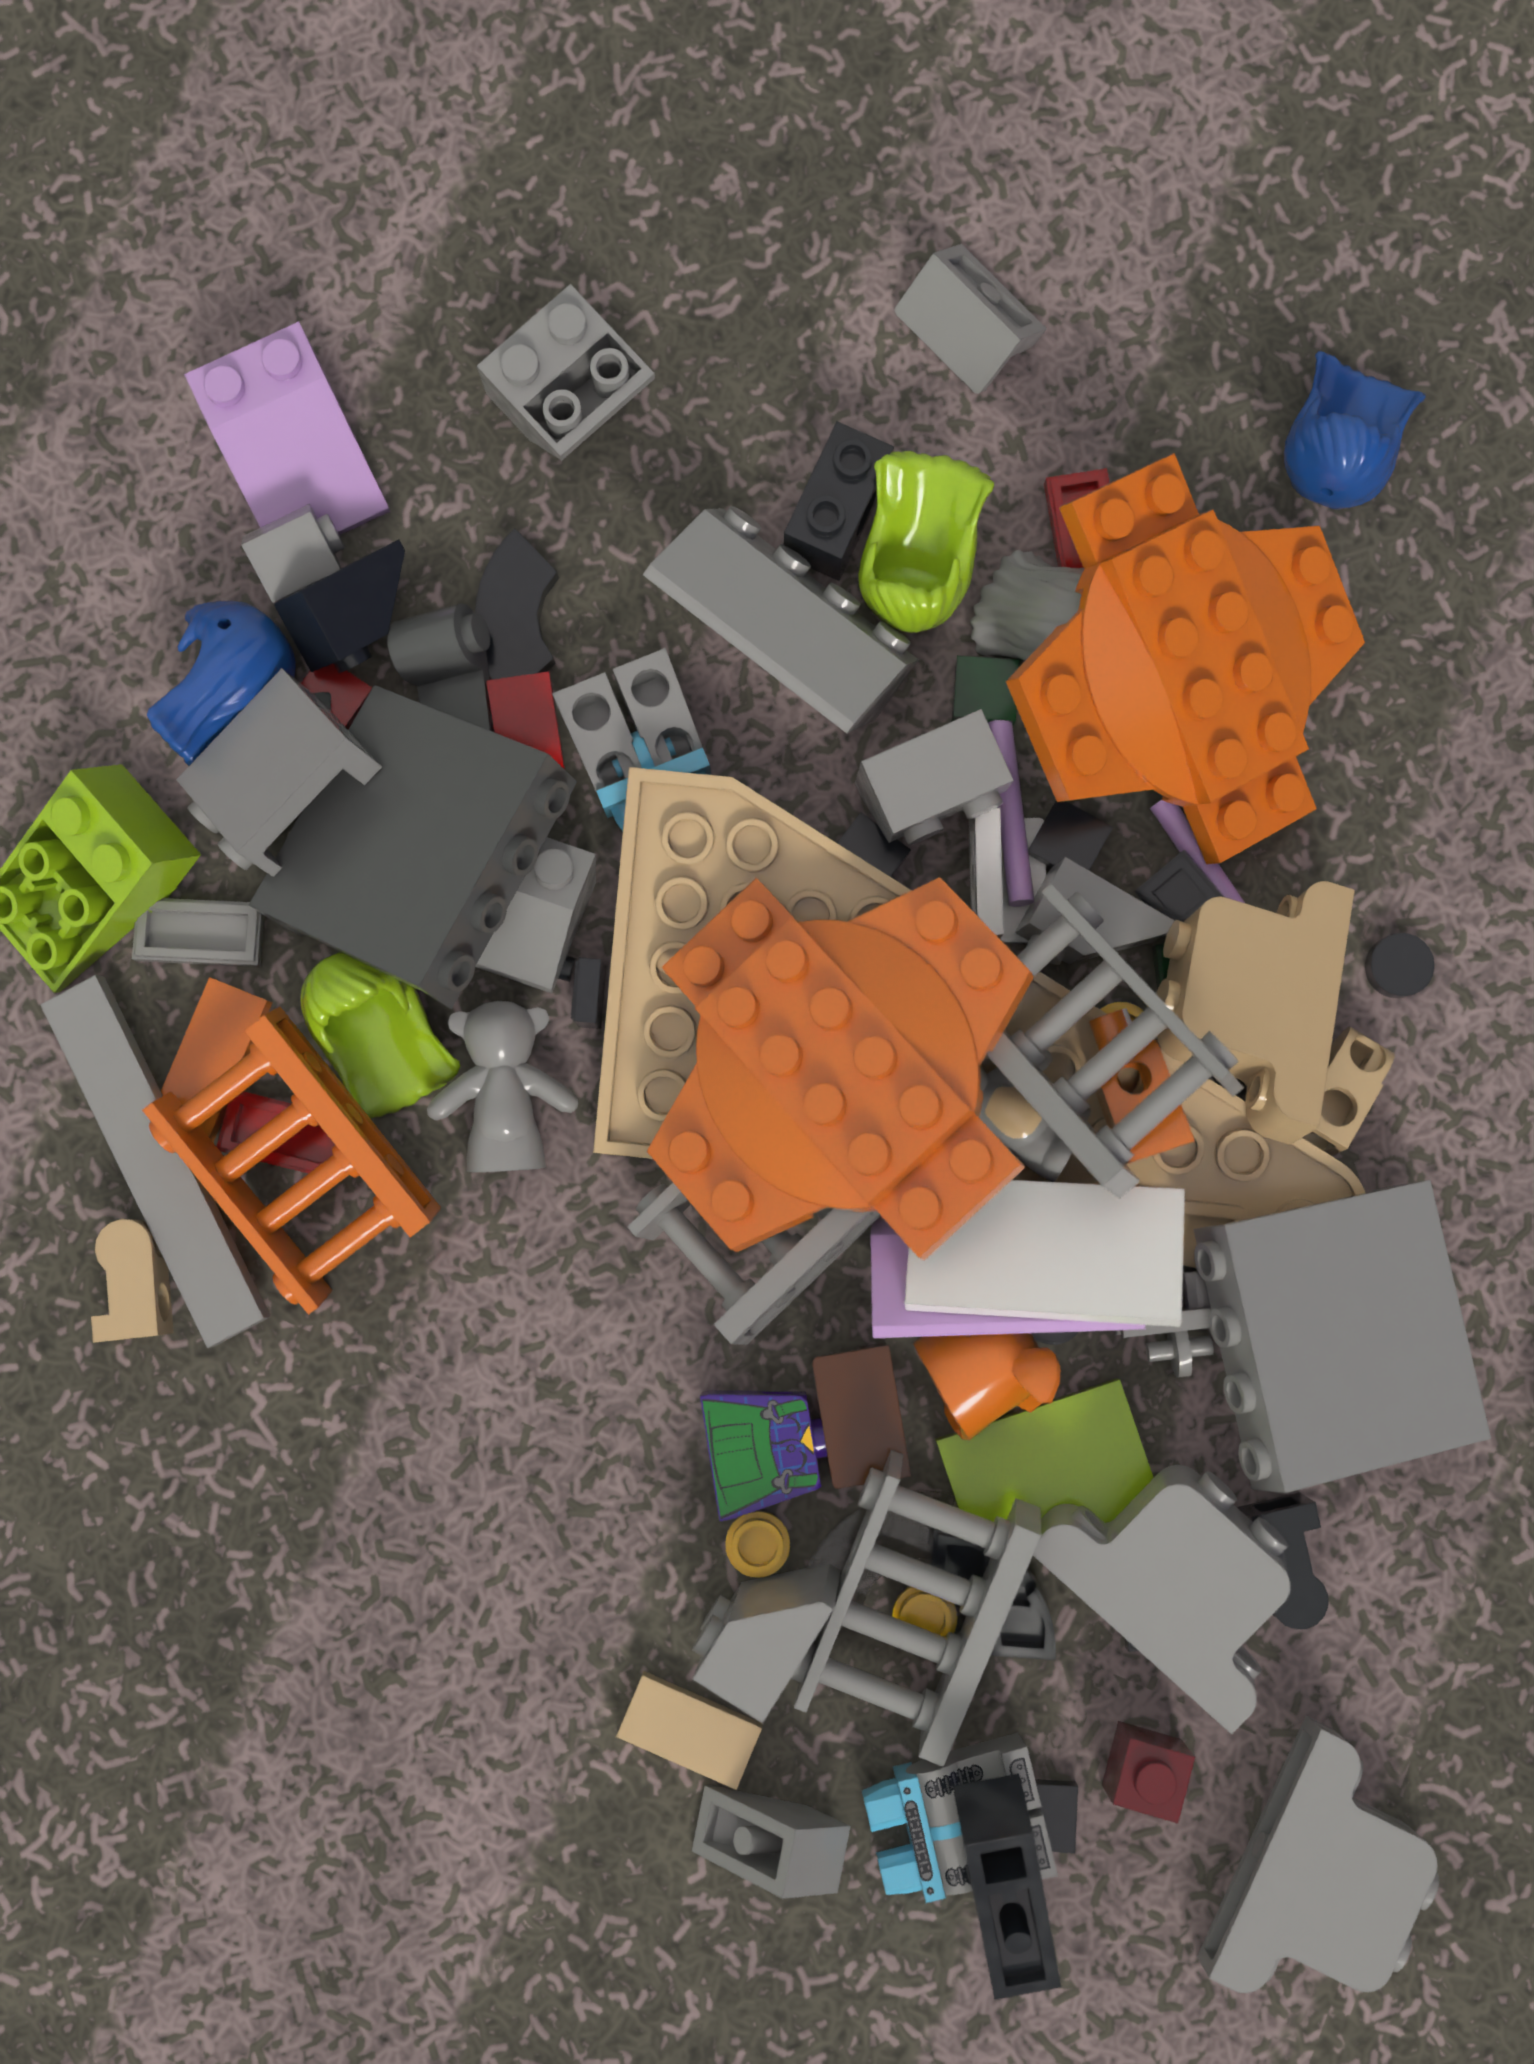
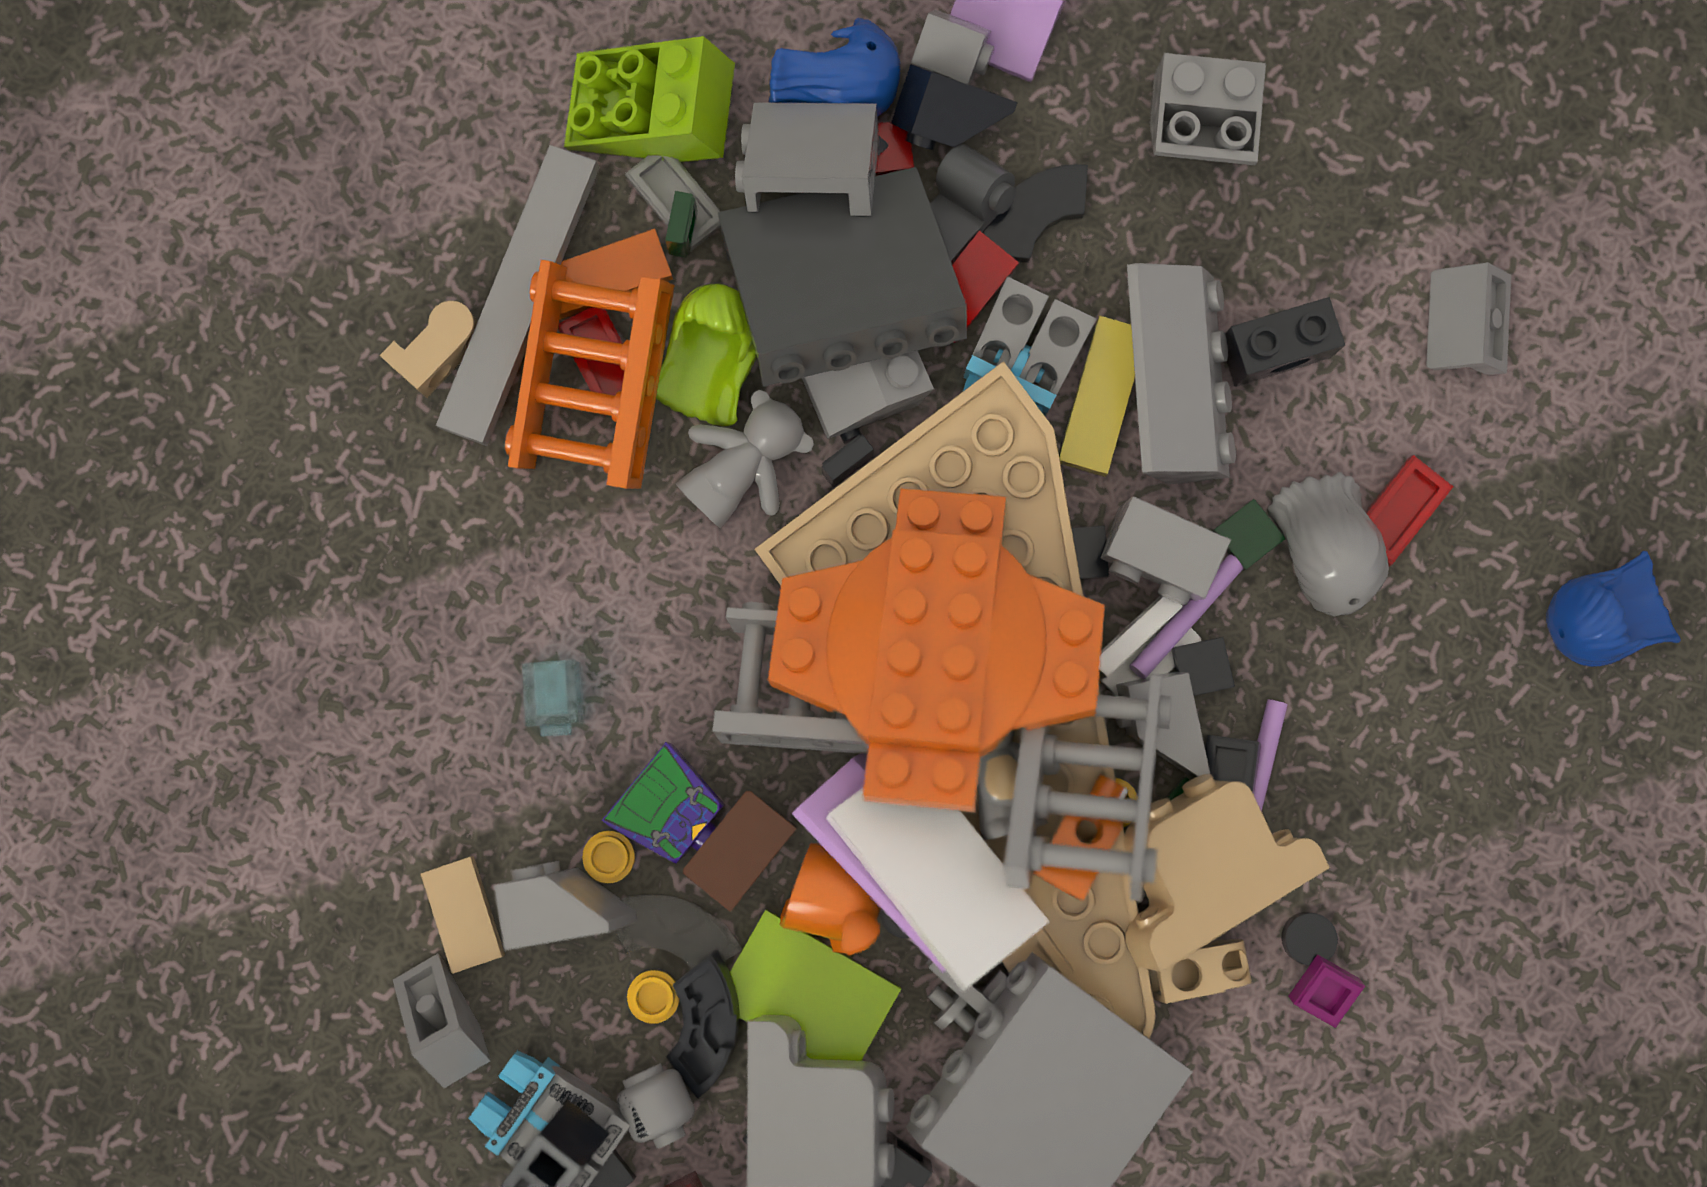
camera: 40 degrees right, 0 degrees up
(229, 948) = (681, 224): none -> dark green tile
(562, 1463) = (553, 696): none -> clear light blue brick
(740, 710) = (1100, 399): none -> light yellow tile
(921, 538) = (1304, 412): lime piece -> none
(982, 1600) = (693, 1021): light grey fence -> none
(1028, 1705) = (656, 1105): none -> light grey head
(1187, 660) = (1377, 640): orange plate -> none
(1460, 993) = (1326, 991): none -> magenta tile

